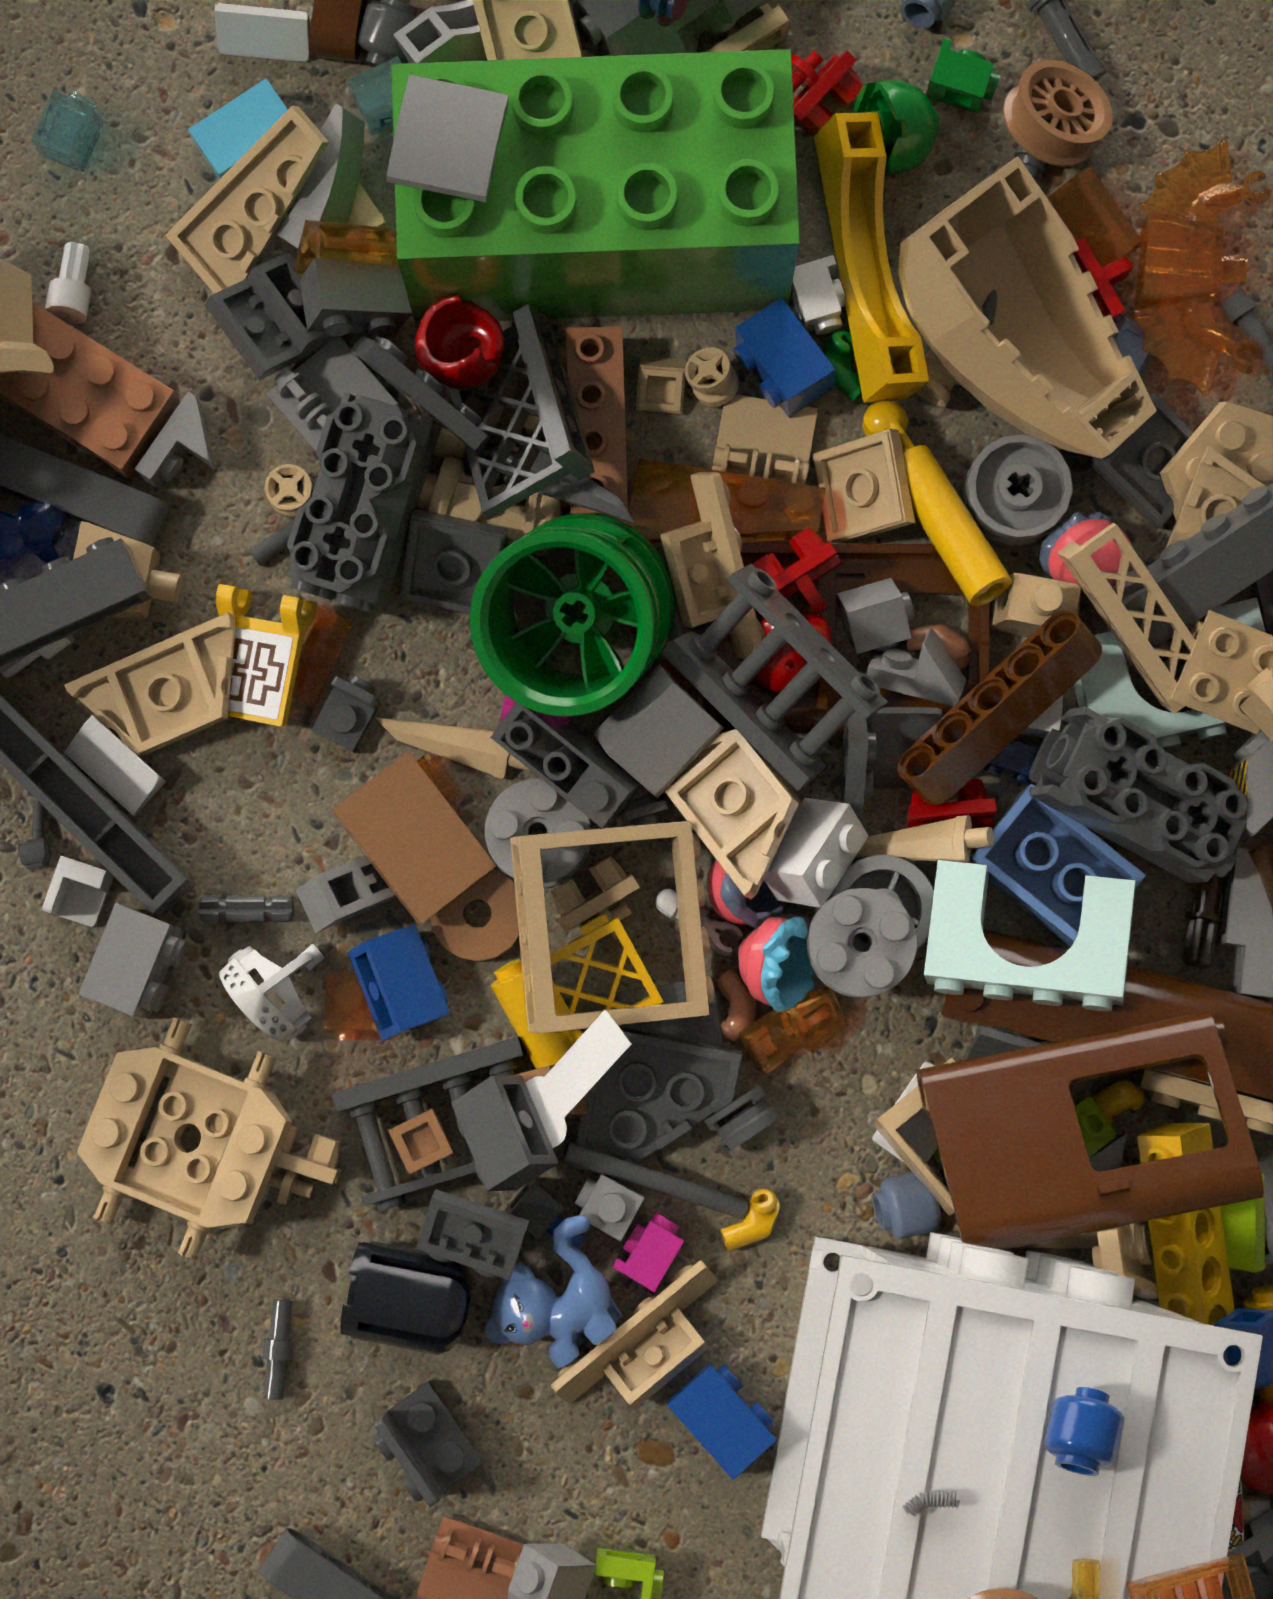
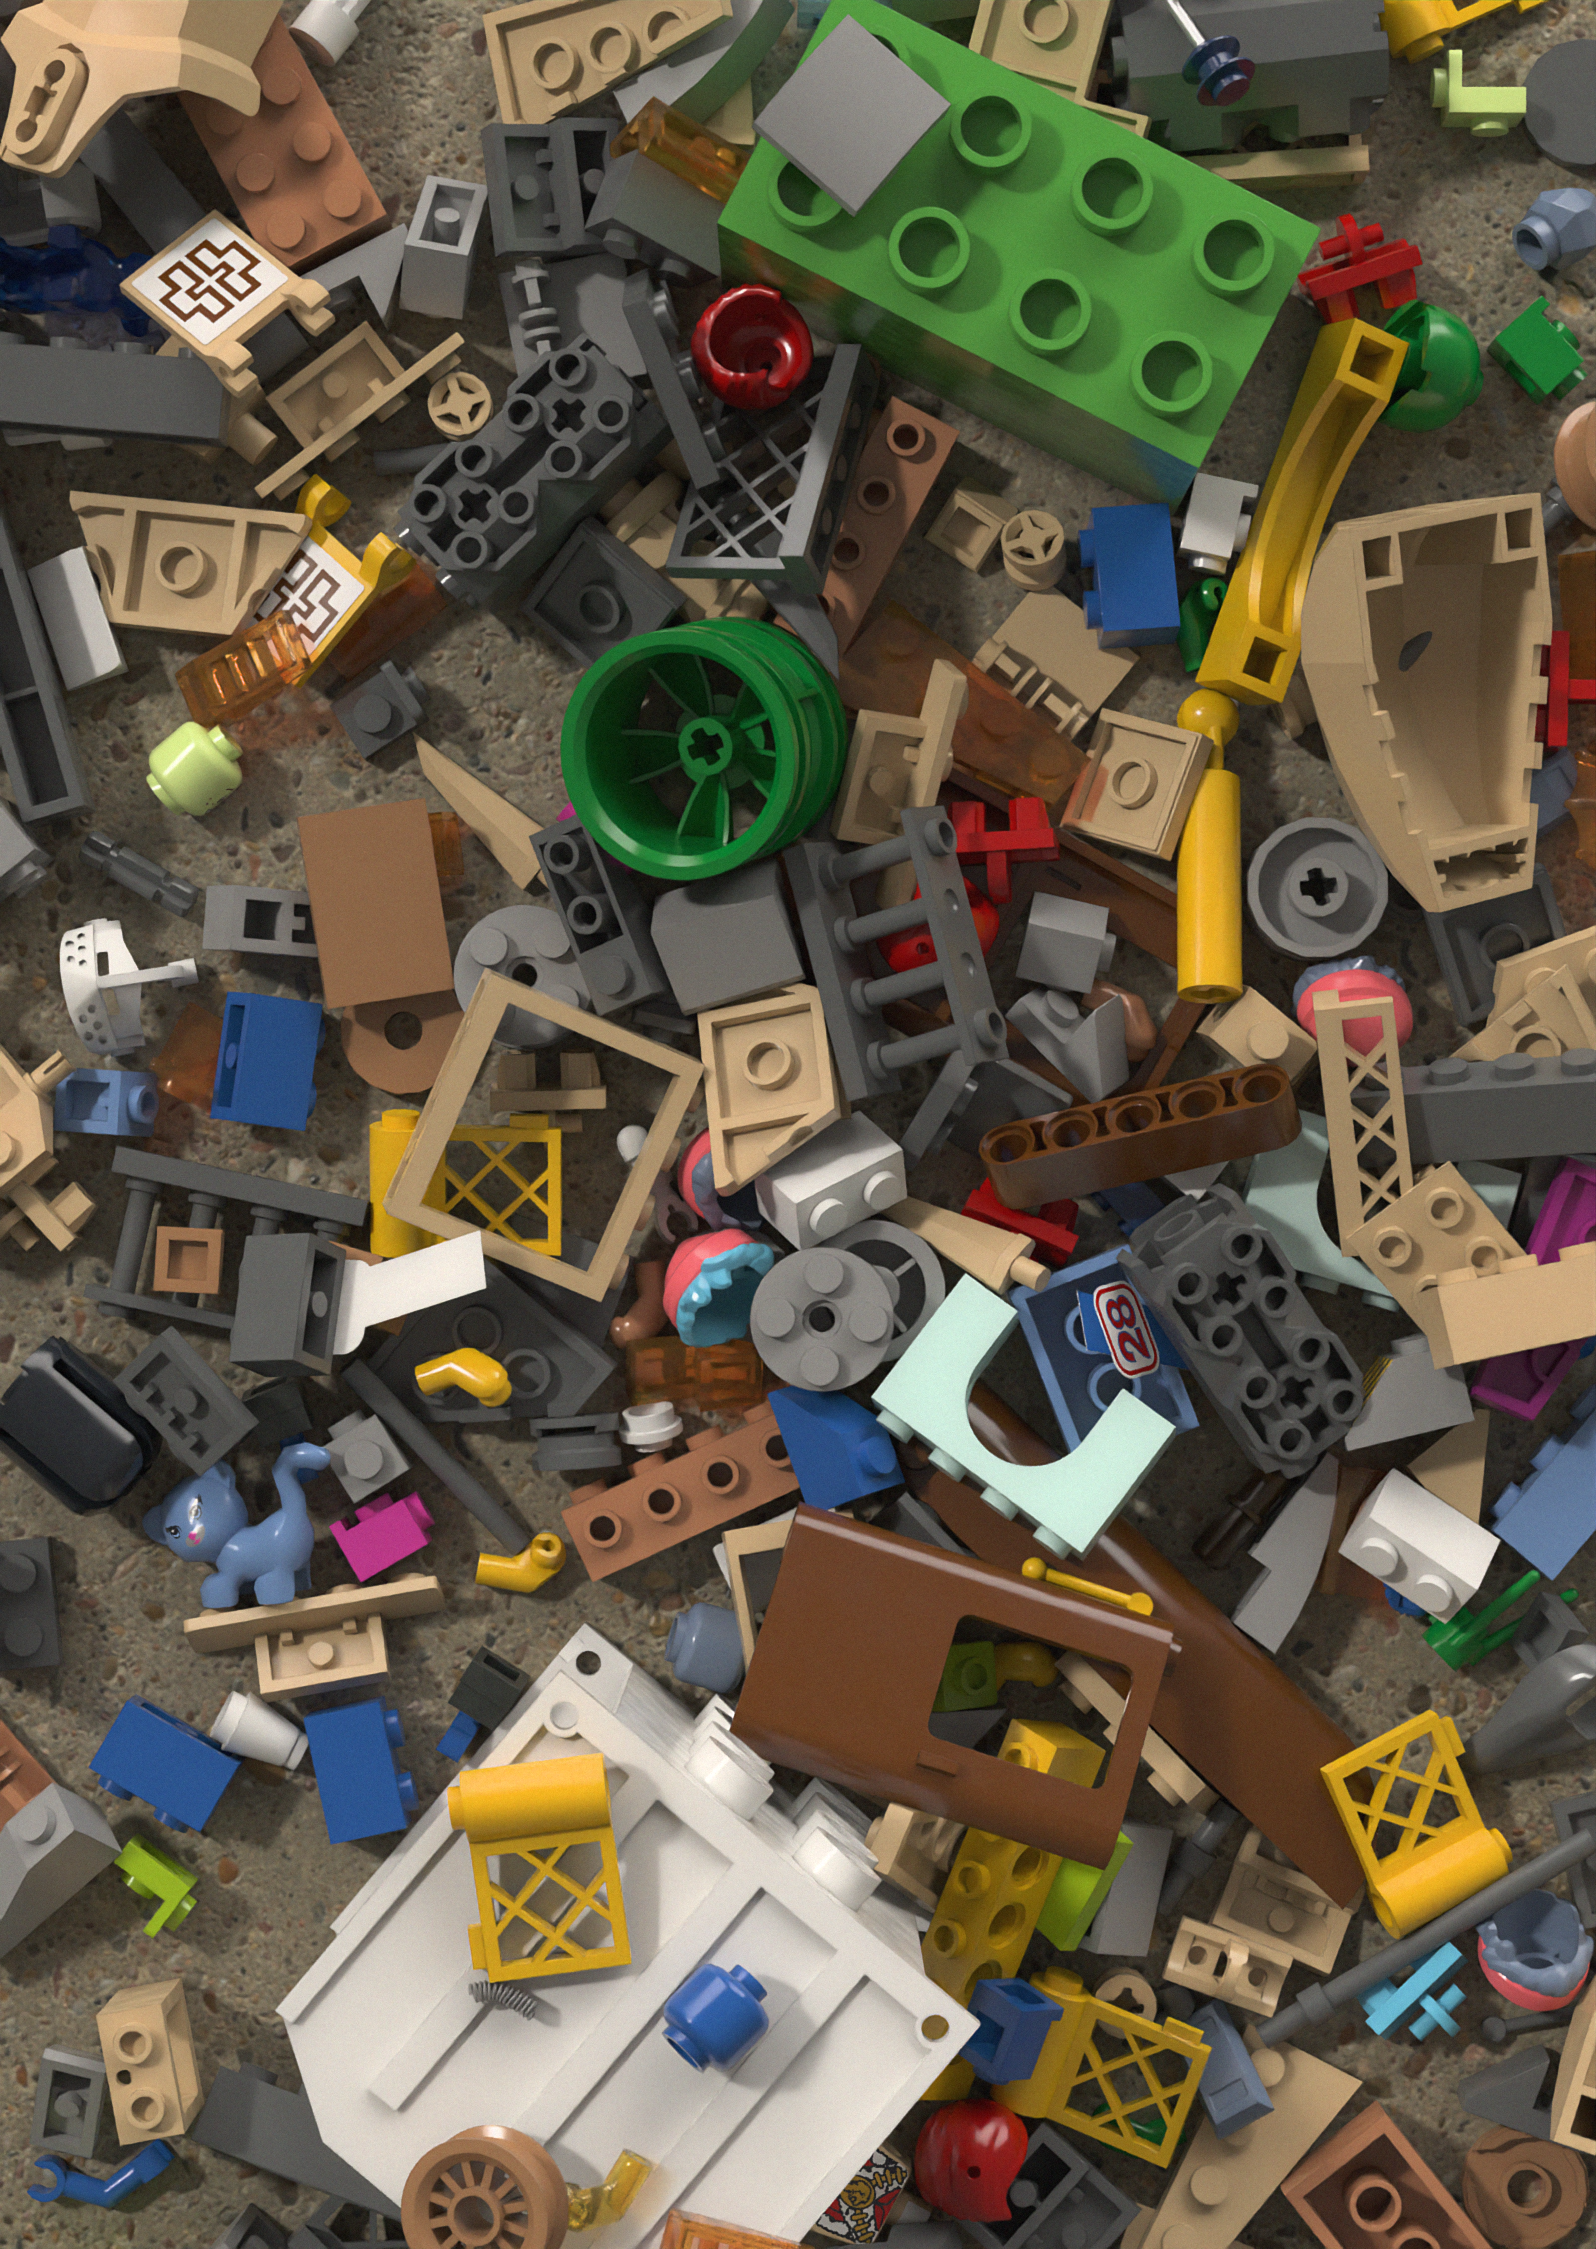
camera: 30 degrees right, 5 degrees up
(92, 497) = (220, 290): none -> flag
(206, 524) = (341, 392): none -> tan bracket
(222, 395) = (443, 247): none -> light grey slope
(227, 760) = (208, 683): none -> clear orange slope
(245, 818) = (195, 768): none -> yellowish green head
(308, 1070) = (107, 1102): none -> medium blue bracket
(591, 1490) = (165, 1765): none -> blue brick
(641, 1432) = (258, 1732): none -> white cone
(647, 1109) = (470, 1371): none -> yellow arm
(777, 1323) = (483, 1698): none -> pearl dark grey piece
(785, 1081) = (650, 1426): none -> white plate
(838, 1107) = (680, 1496): none -> nougat brick
(875, 1363) = (531, 1810): none -> yellow piece
(916, 1023) = (834, 1446): none -> blue slope
(1064, 837) = (1126, 1330): none -> sticker
(1096, 1026) = (1038, 1569): none -> yellow hinge

